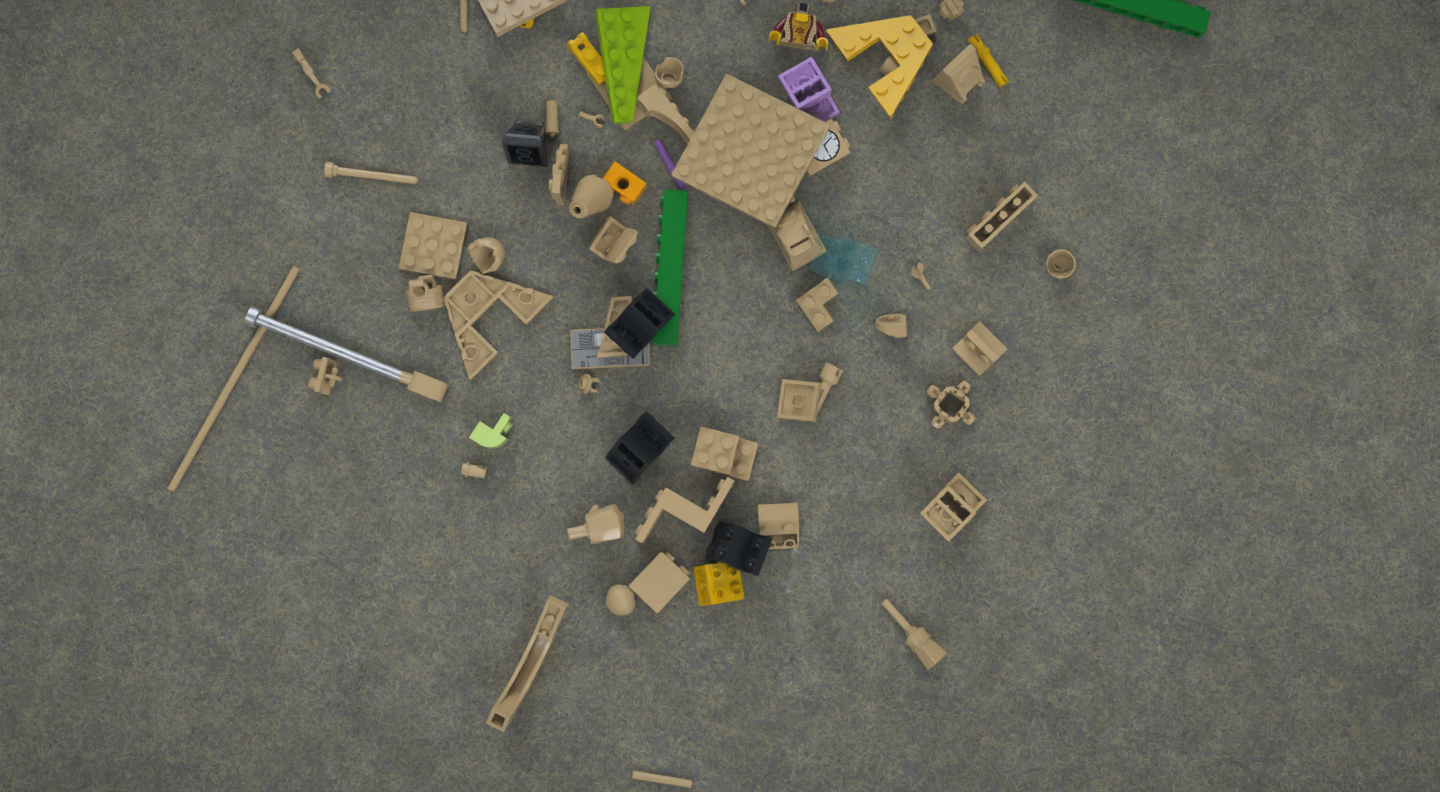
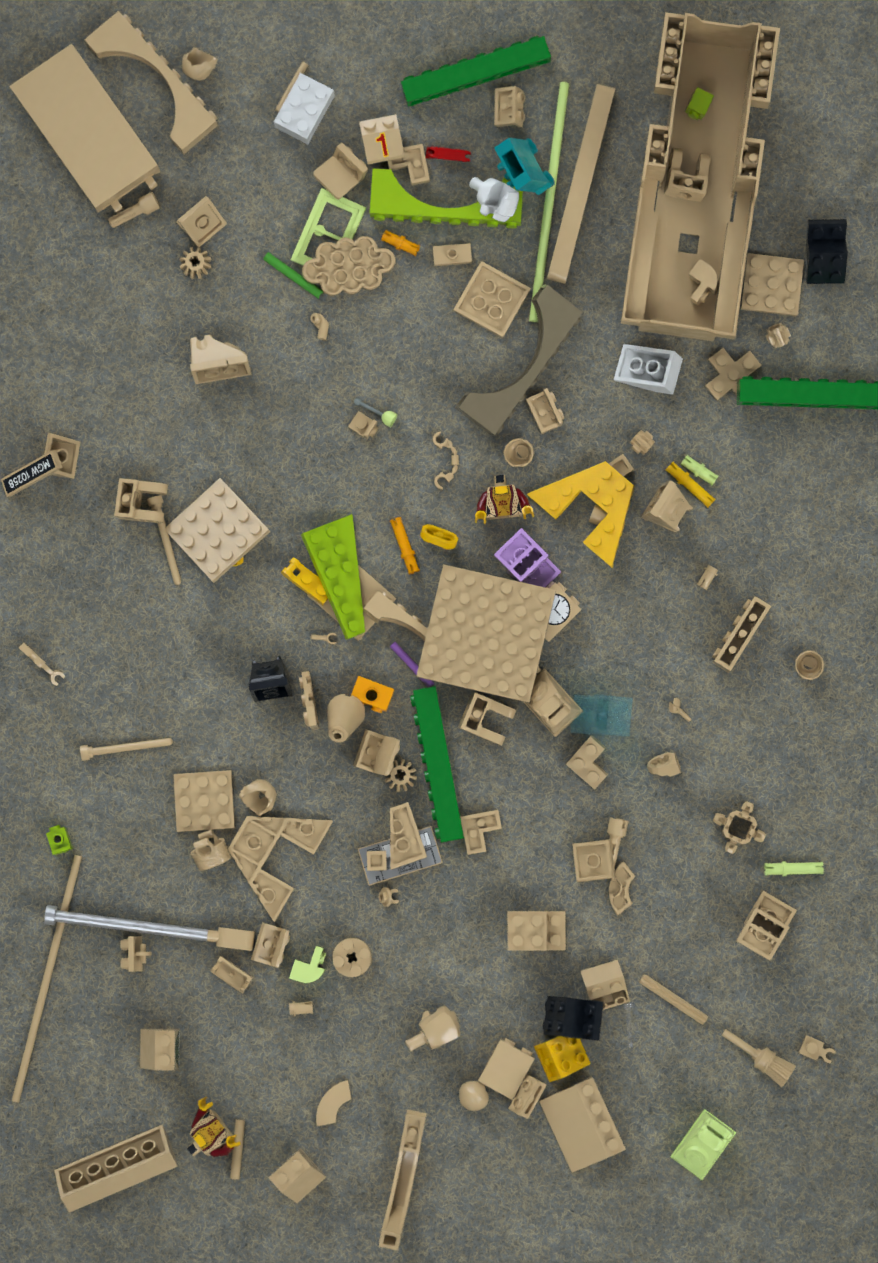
camera: 10 degrees left, 0 degrees up
(249, 580) = (115, 1168): none -> tan slope
(284, 253) = (65, 843): none -> lime brick
(325, 474) = (159, 1049): none -> tan slope
(352, 569) = (210, 1133): none -> torso
(375, 592) = (237, 1151): none -> tan piece
(415, 420) = (232, 974): none -> tan hinge
(425, 633) = (297, 1176): none -> tan slope
(460, 401) = (270, 945): none -> tan bracket
(479, 571) = (331, 1102): none -> tan tile
(536, 422) = (342, 962): none -> tan brick
(551, 118) = (285, 647): tan piece -> none
(585, 345) = (376, 861): none -> tan plate
(636, 272) = (407, 777): none -> tan gear
(639, 323) = (424, 828): black bracket -> none
(639, 447) = (454, 945): black bracket -> none
(662, 779) = (557, 1255): tan bar -> none
(672, 67) = (391, 569): tan hair -> none
(673, 614) = (527, 1096): none -> tan bracket
(683, 510) = (512, 994): tan bracket -> none
(692, 336) = (473, 829): none -> tan plate
(694, 58) = (404, 545): none -> light orange pin
(719, 228) = (475, 712): none -> tan brick
(720, 656) = (582, 1125): none -> tan piece
(729, 49) = (439, 536): none -> yellow plate
(817, 435) = (619, 888): none -> tan tile
(835, 706) = (703, 1144): none -> yellowish green piece
(842, 556) = (673, 999): none -> tan axle
(969, 640) = (814, 1048): none -> tan plate
(979, 348) = (752, 766): tan bracket -> none
(985, 150) = (707, 577): none -> tan pin
(985, 456) = (793, 868): none -> yellowish green pin
(1000, 49) = (699, 470): none -> yellowish green pin

